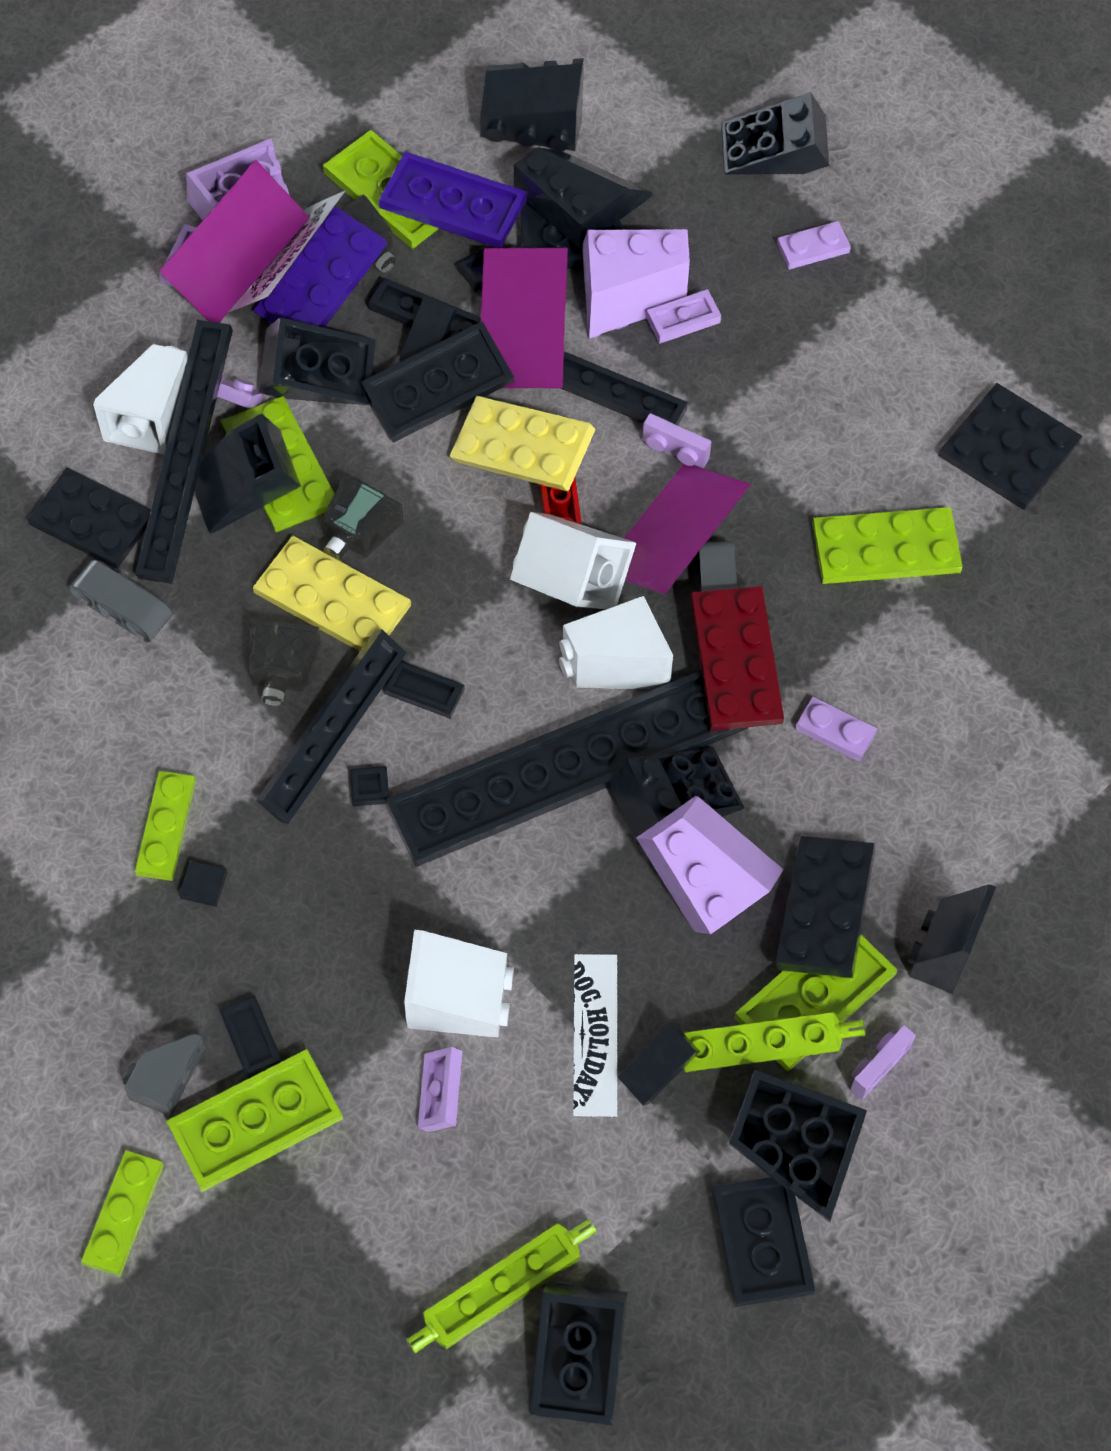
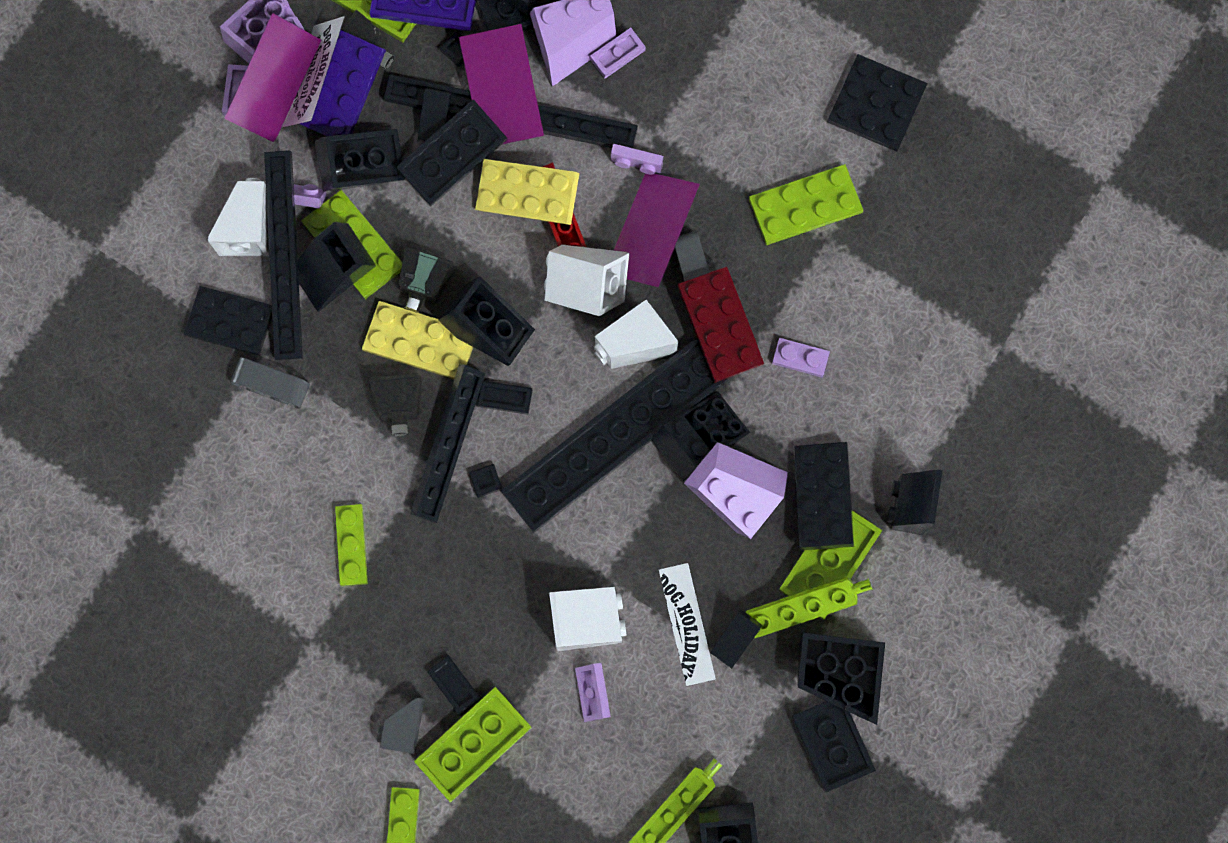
camera: 10 degrees left, 15 degrees up
(203, 883) = (389, 582): black tile -> none
(426, 587) = (487, 322): none -> black slope
(891, 1050) = (890, 589): lavender plate -> none

